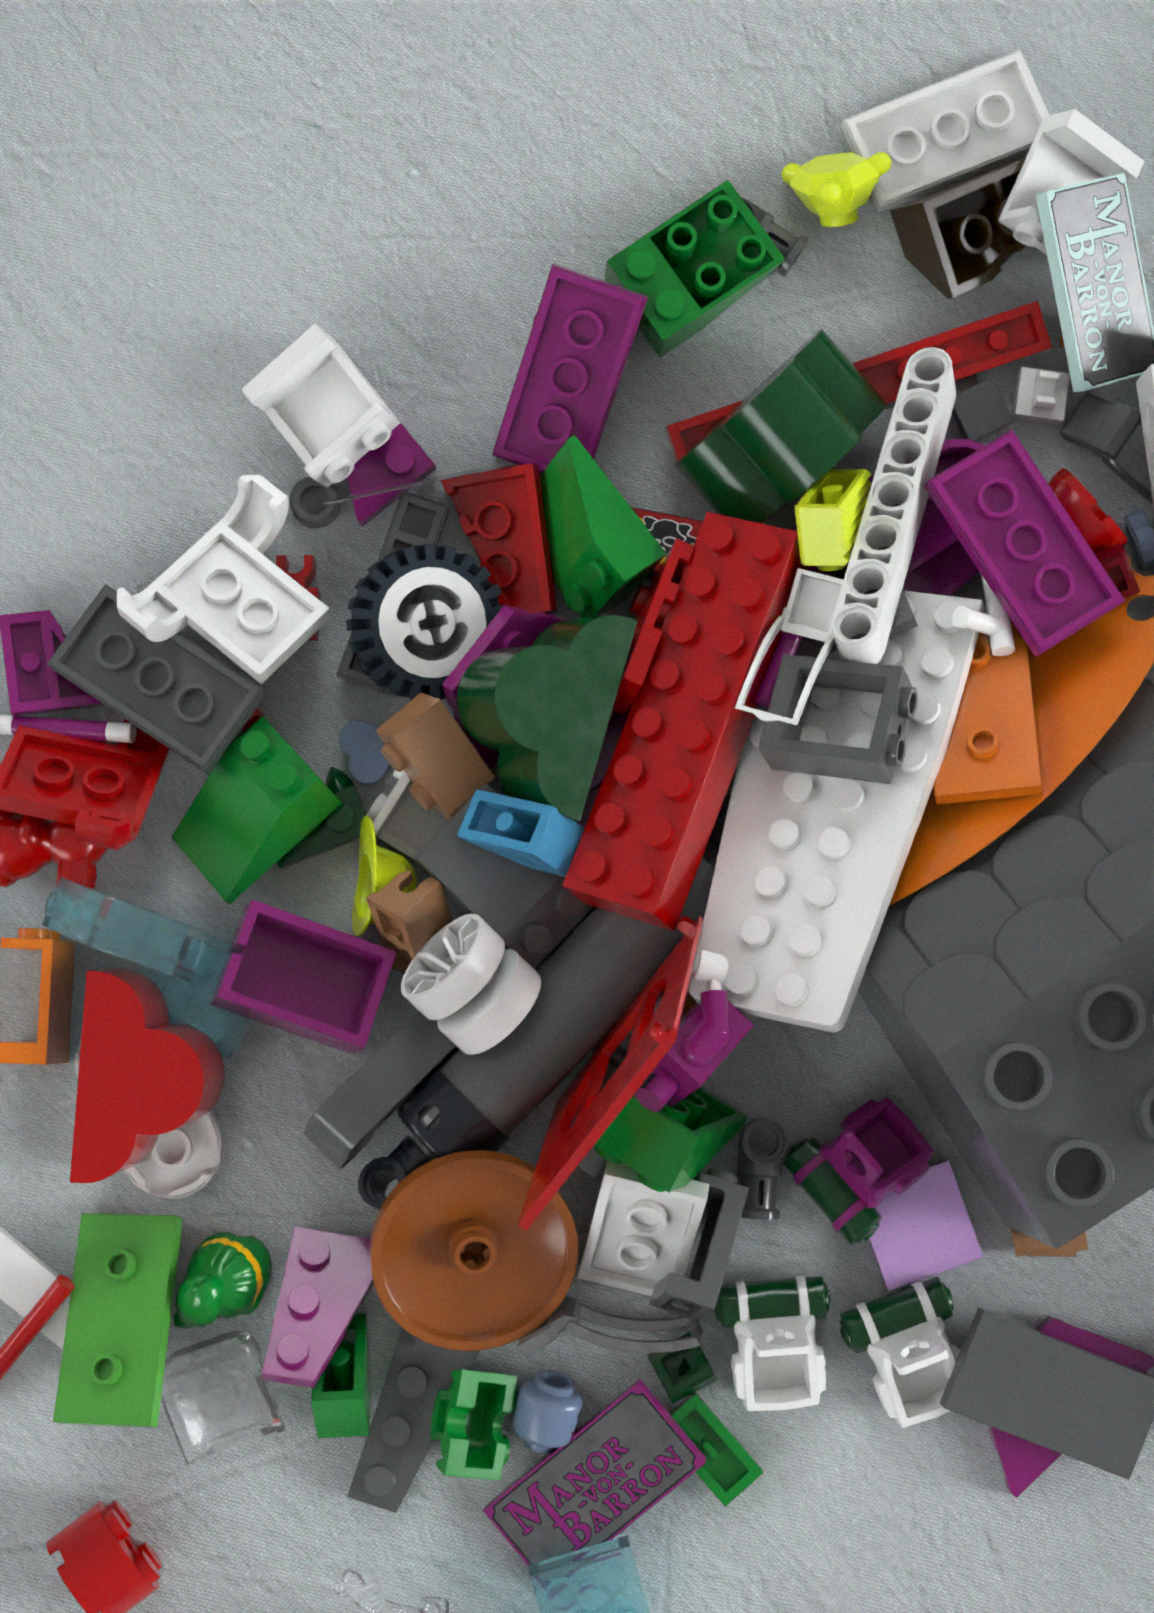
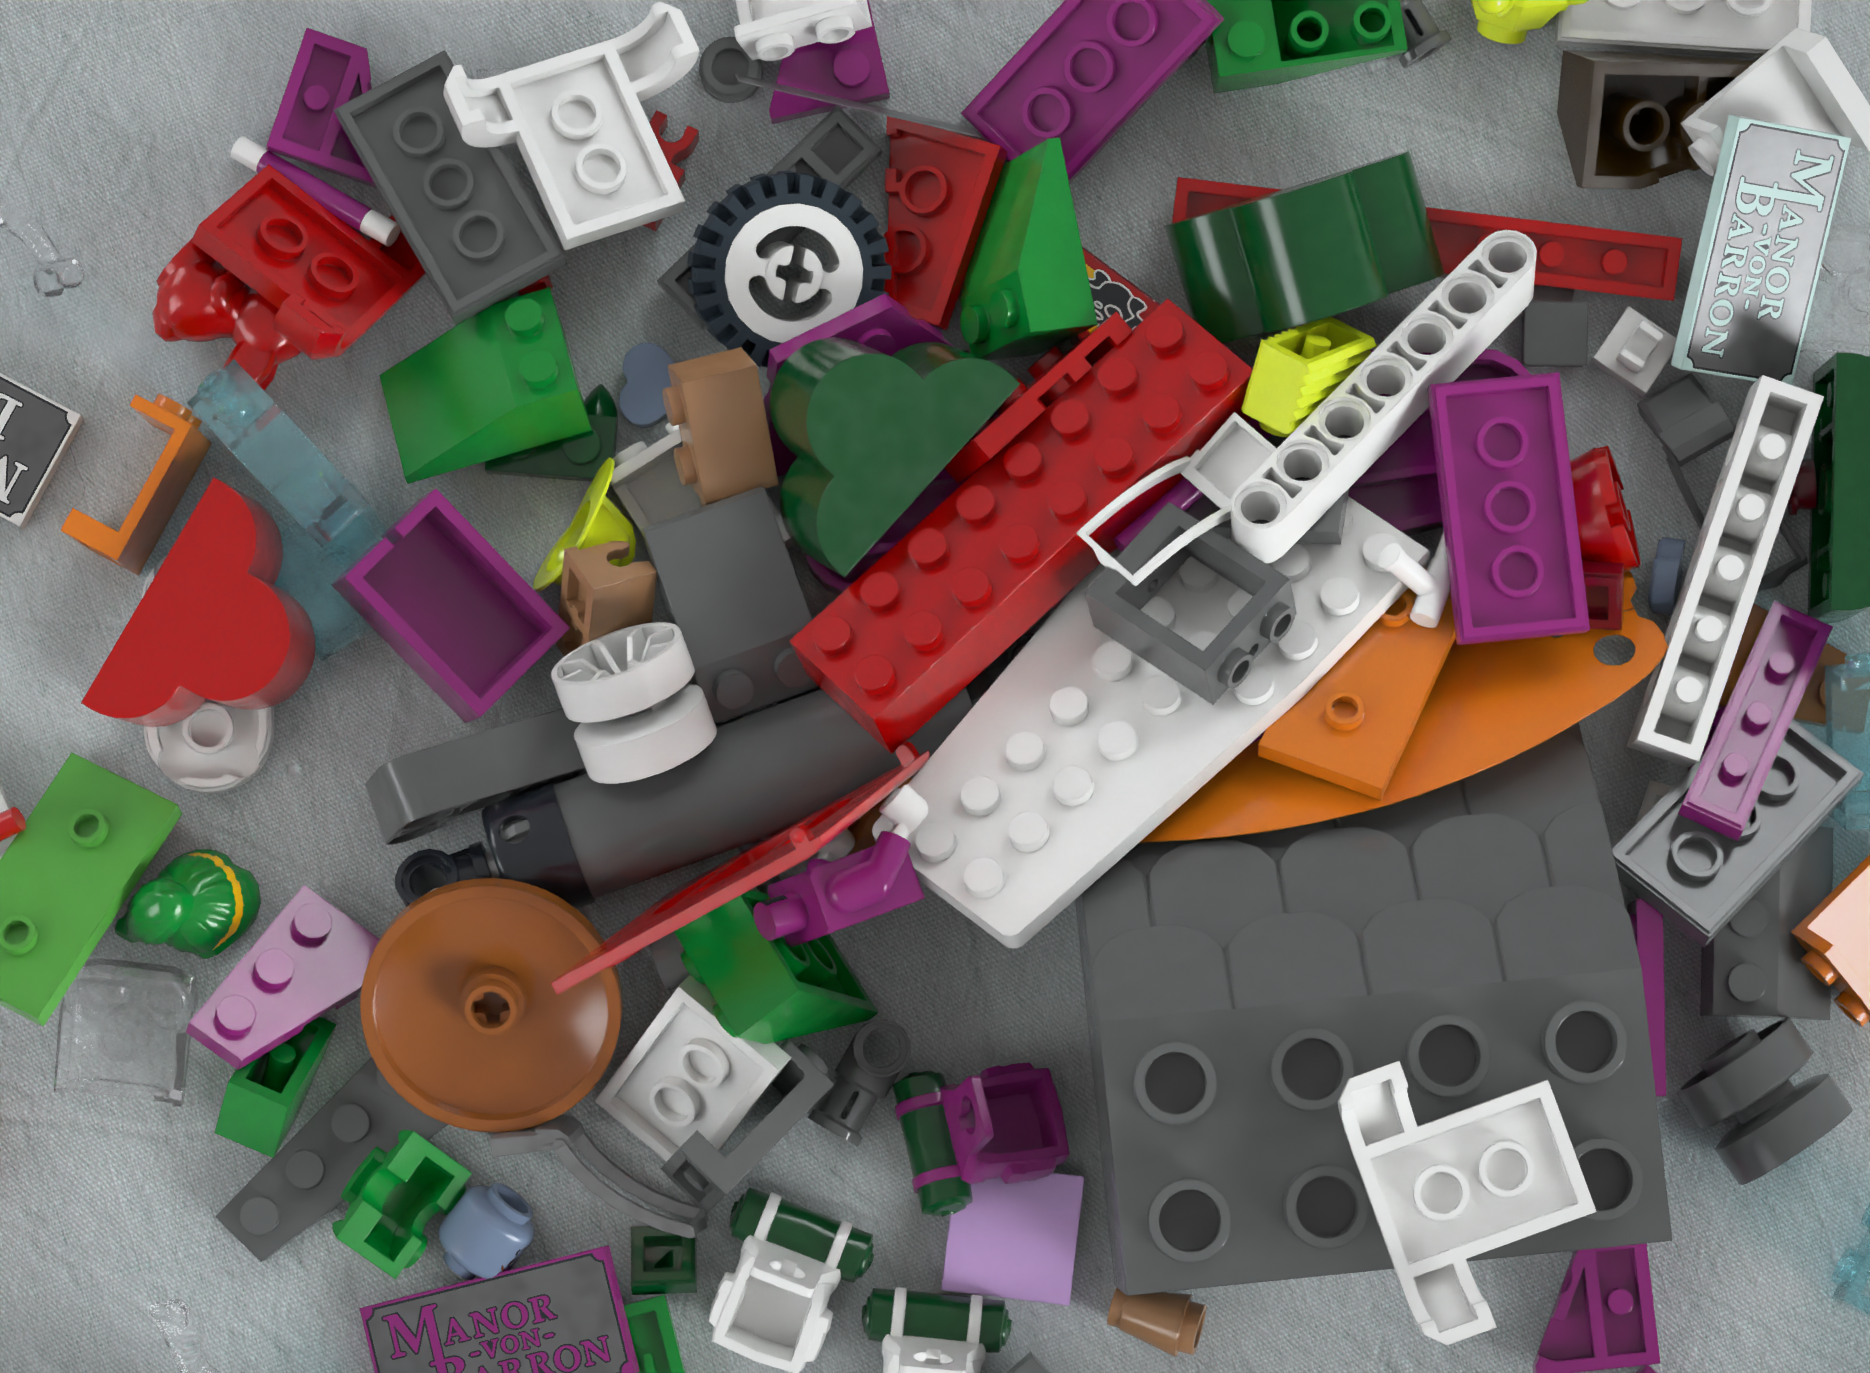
camera: 30 degrees right, 0 degrees up
(521, 831) = (774, 558): dark azure slope -> none

